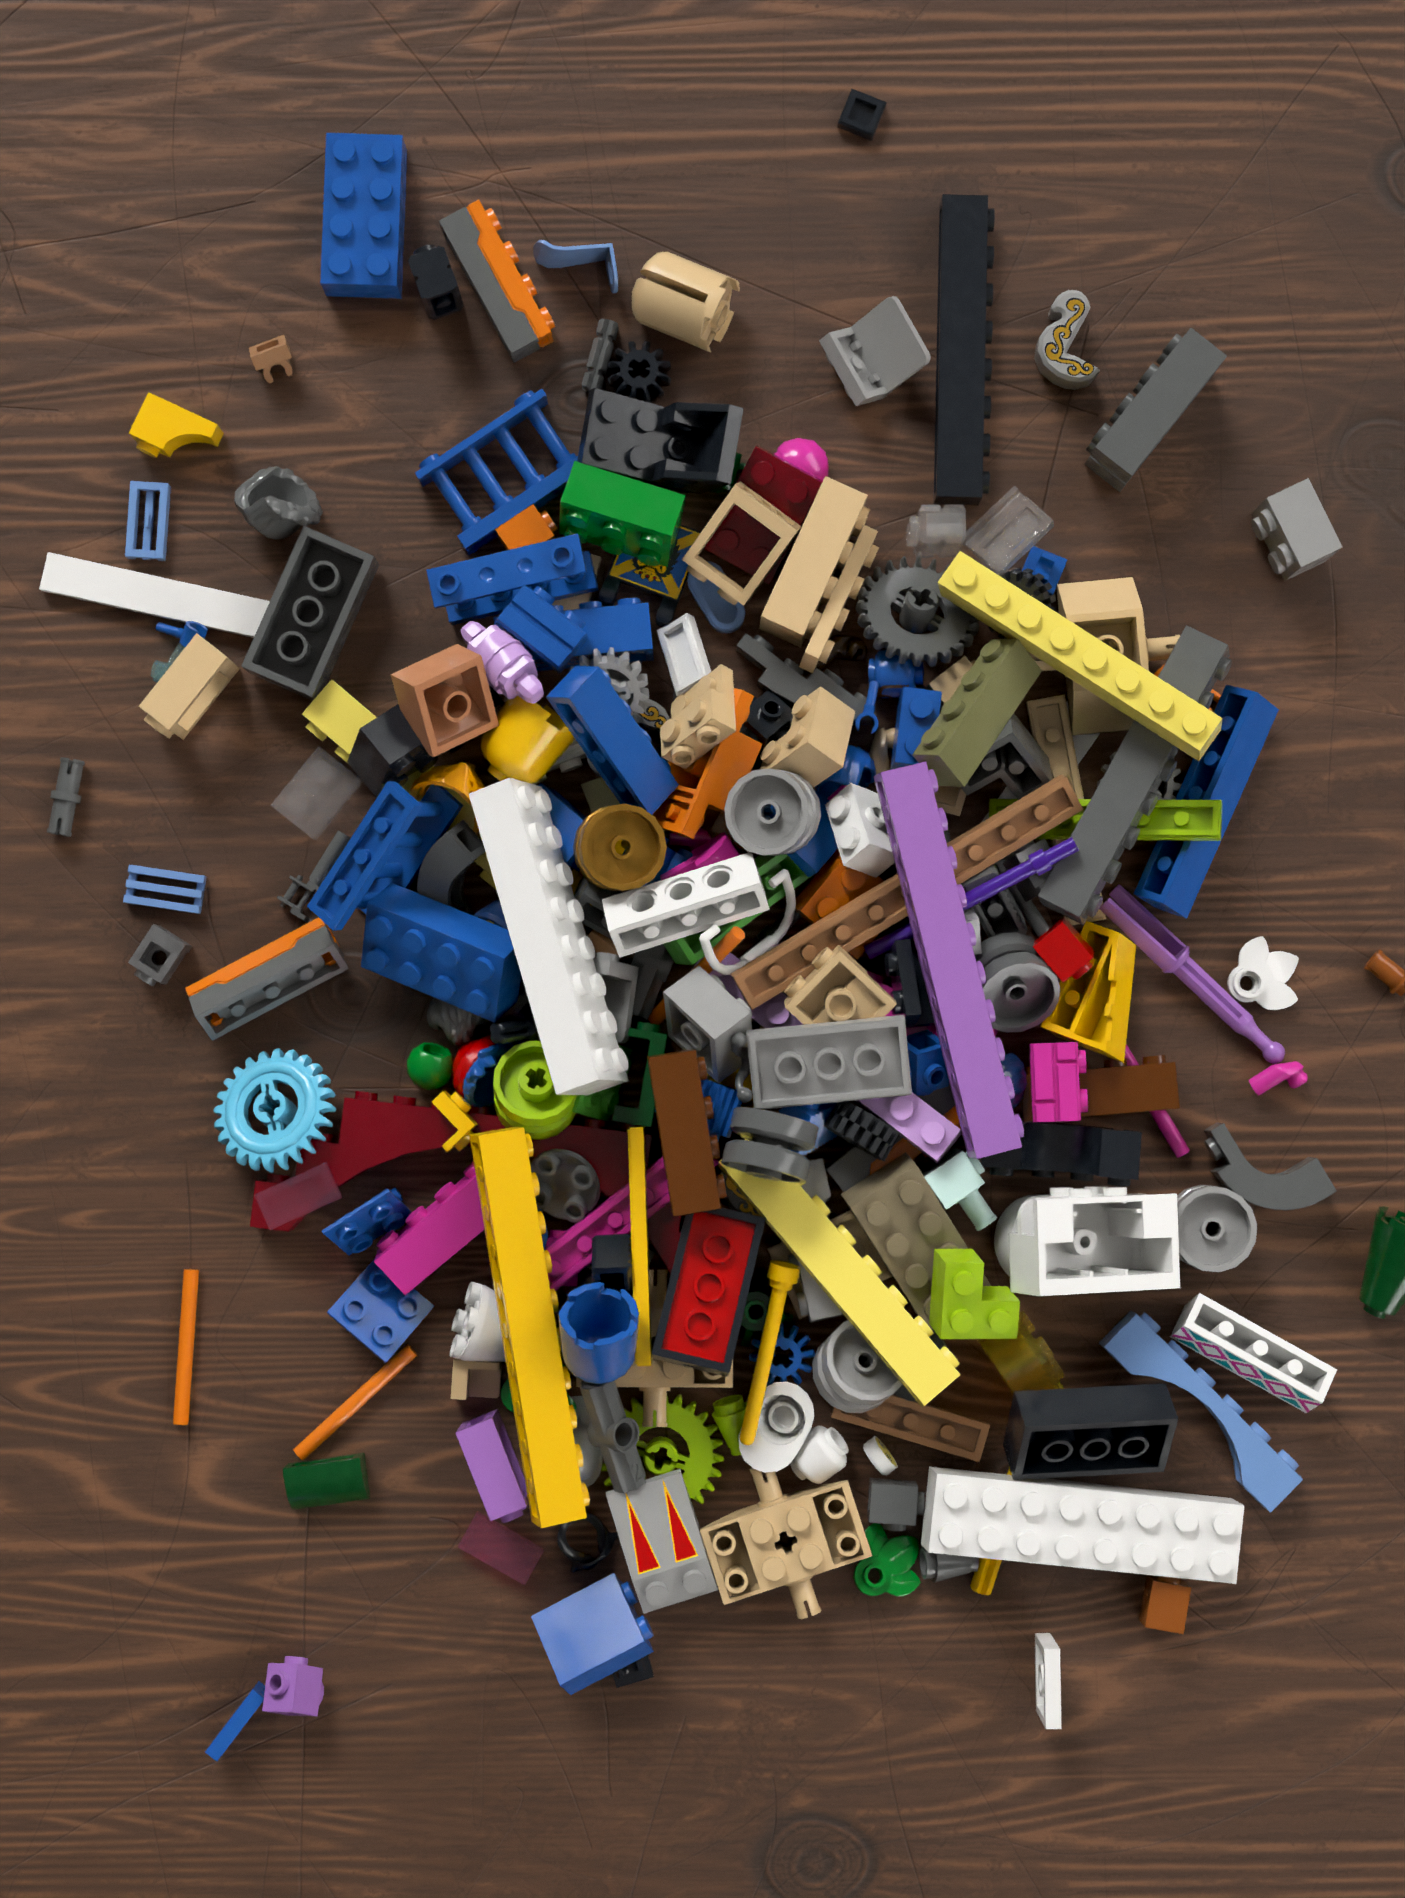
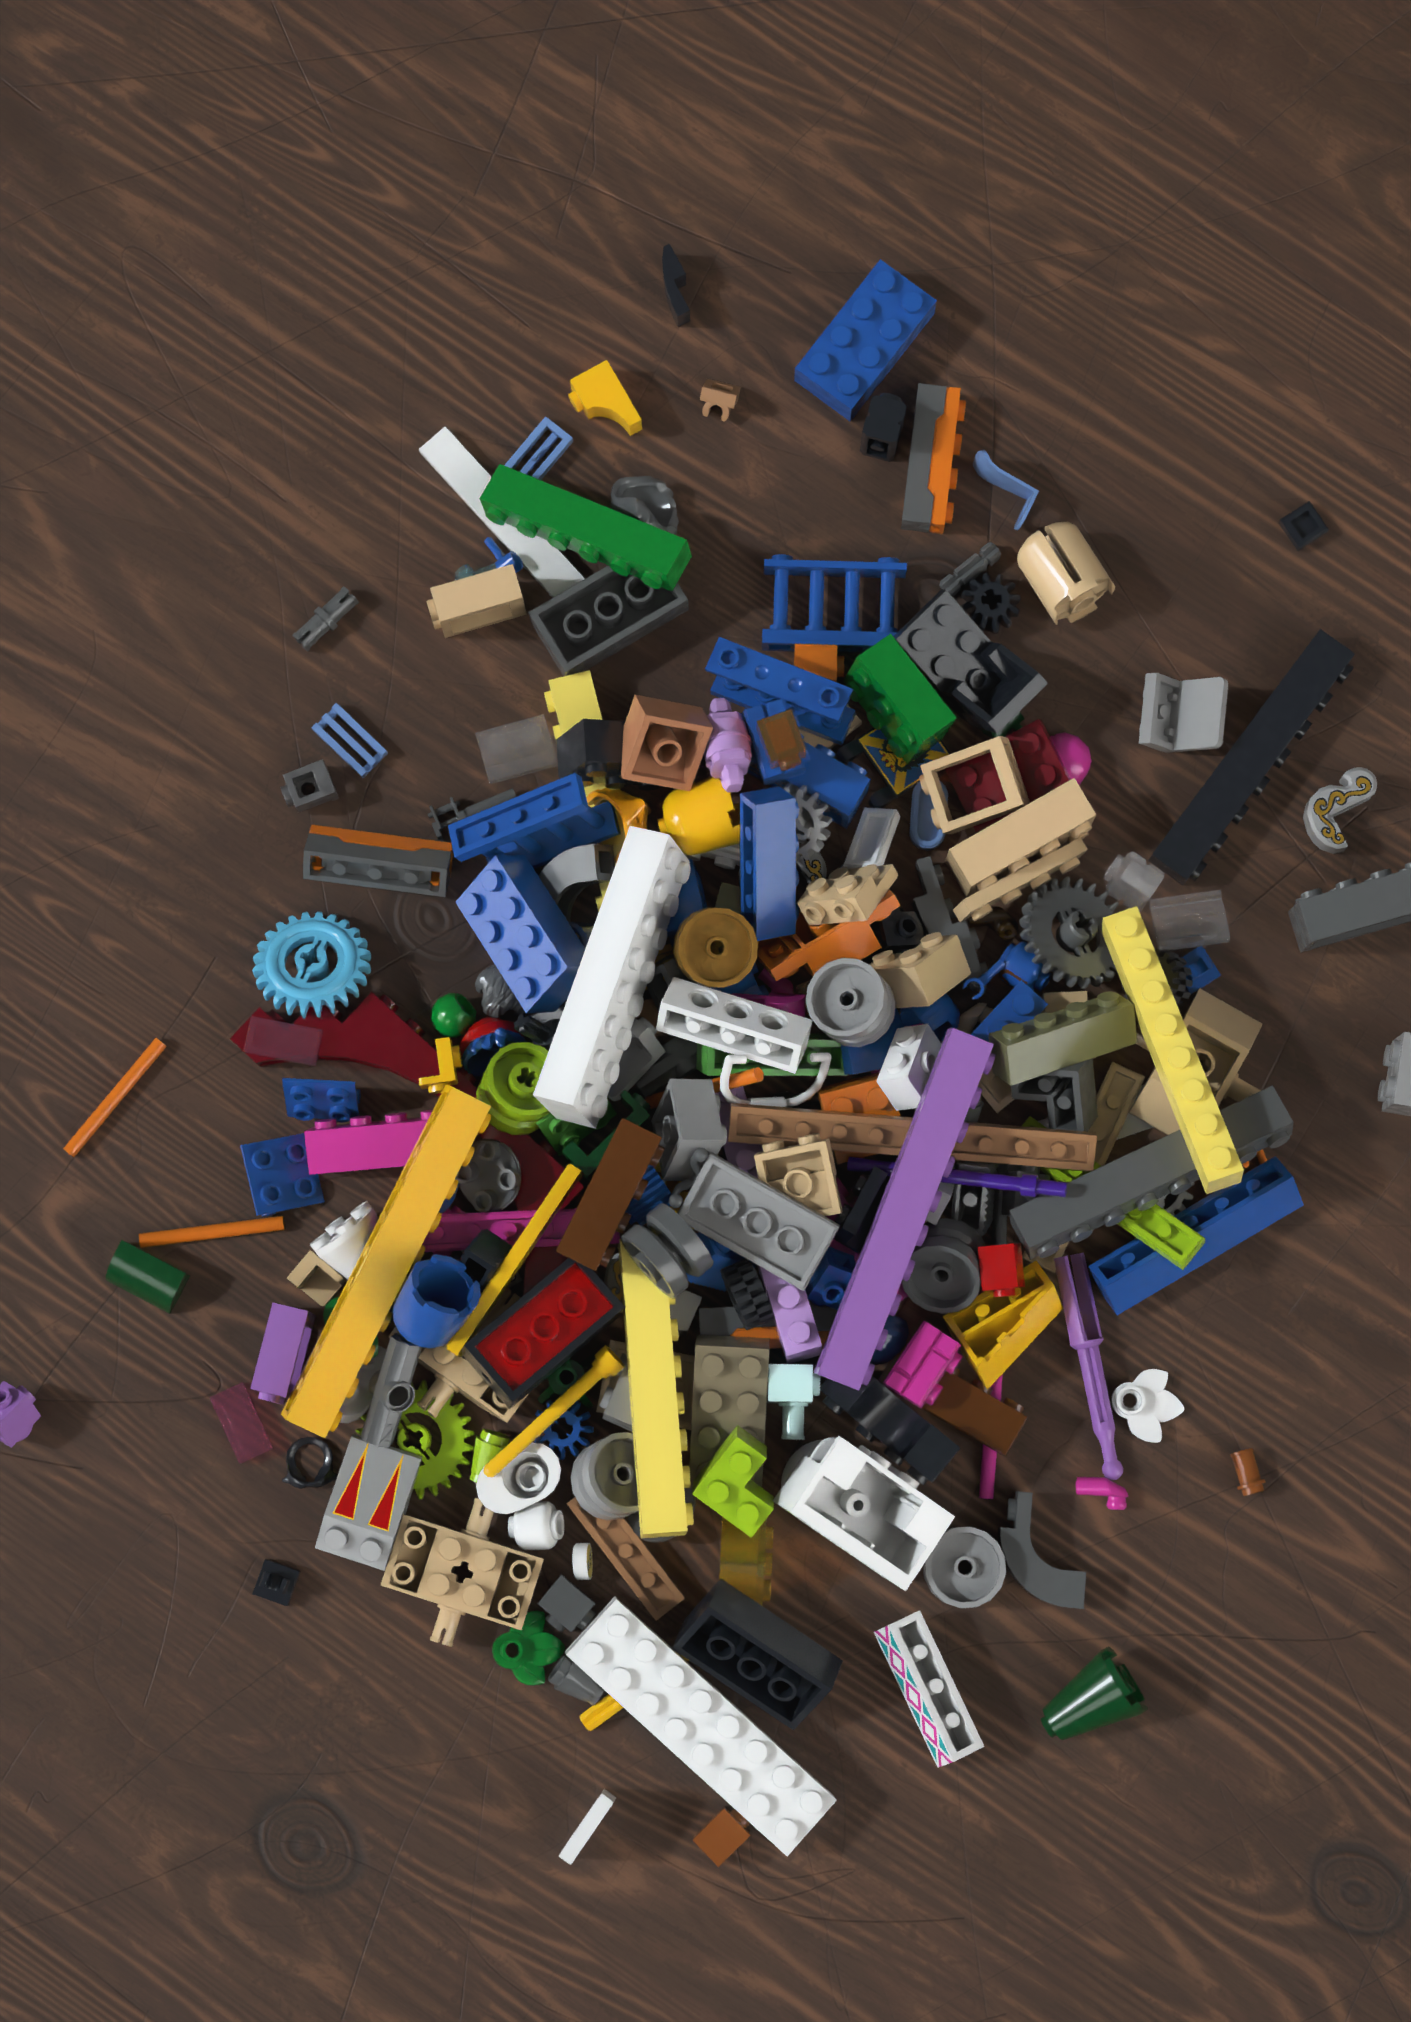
camera: 40 degrees right, 5 degrees down
(156, 279) = (674, 278): none -> black slope
(238, 555) = (585, 528): none -> green brick
(550, 623) = (781, 740): none -> clear orange brick
(593, 1633) = (265, 1536): brick -> none
(1257, 1466) = (870, 1783): medium blue arch -> none

